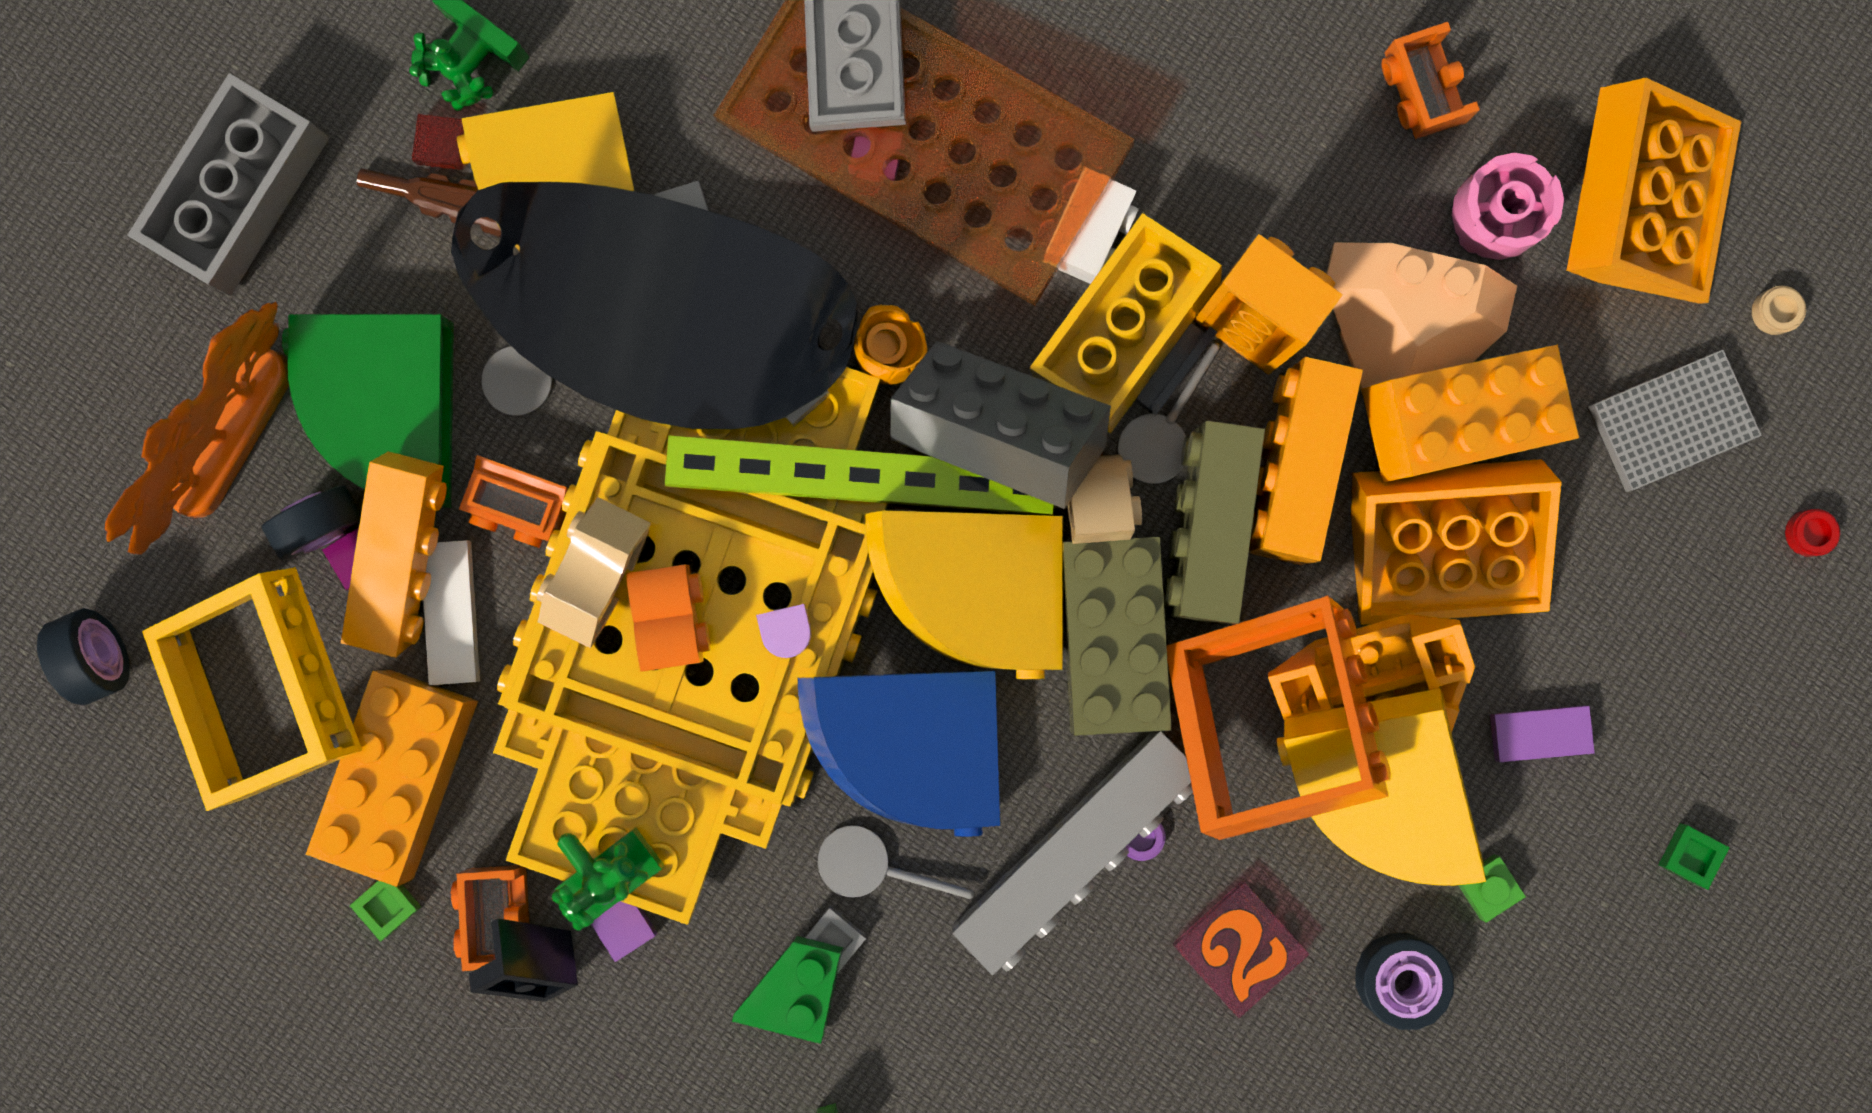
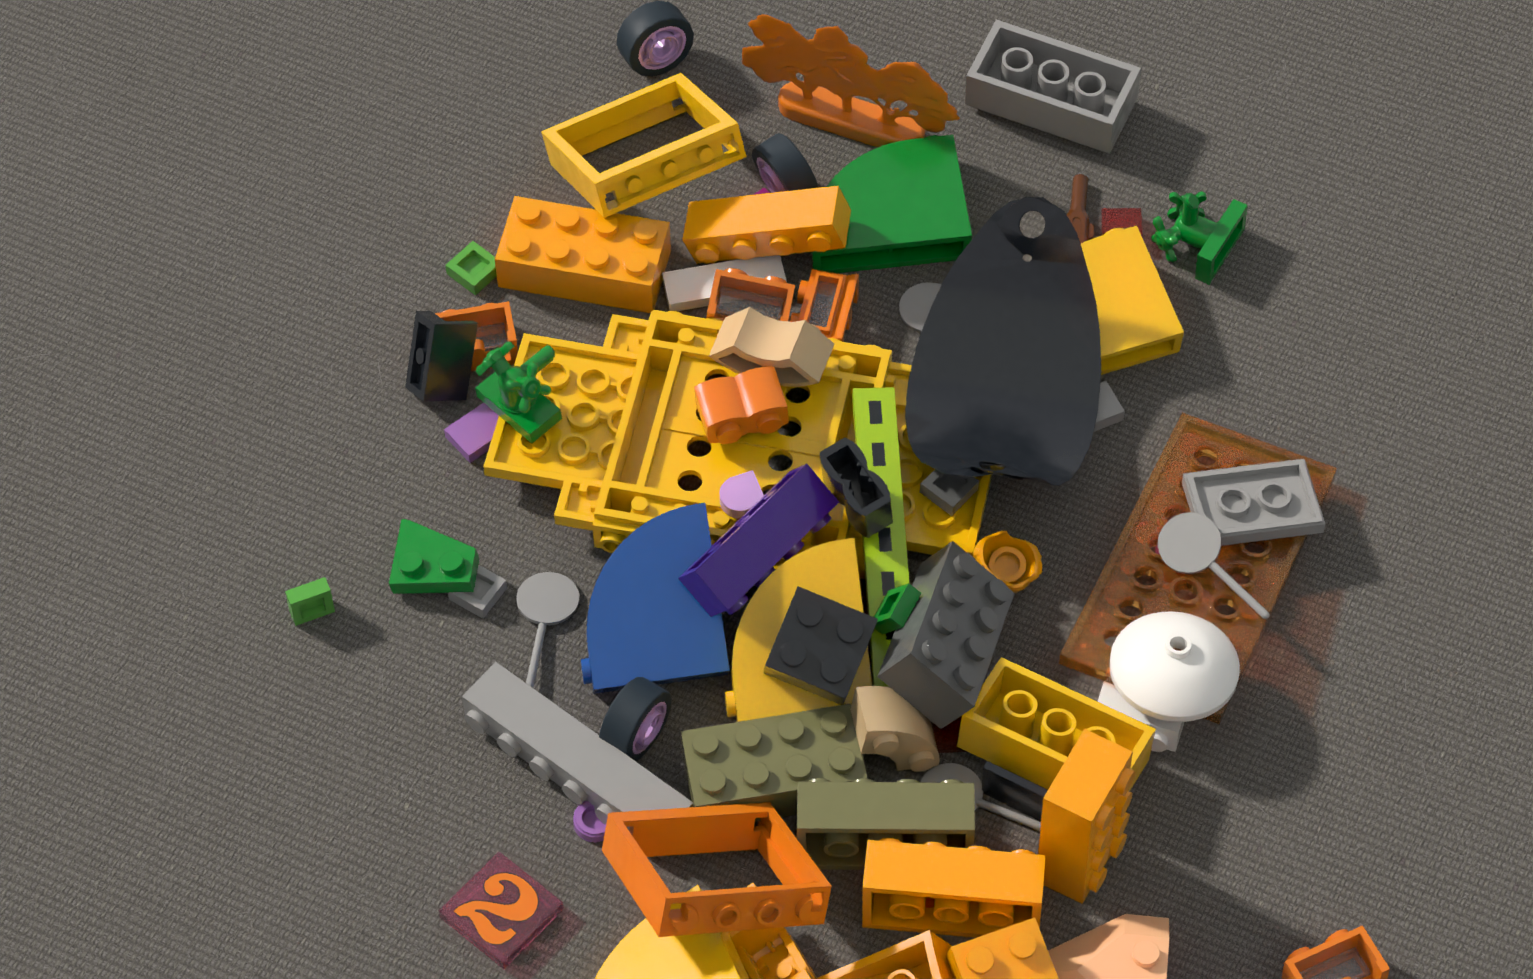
camera: 80 degrees right, 30 degrees down
(497, 587) = (736, 290): none -> window
(829, 492) = (856, 487): none -> black brick
(864, 619) = (759, 541): none -> dark purple brick
(911, 132) = (1191, 545): none -> light grey piece
(967, 476) = (896, 608): none -> green tile
(1011, 567) = (820, 645): none -> black brick
(1043, 782) = (636, 717): none -> black wheel
(1075, 207) = (1170, 681): none -> white dish

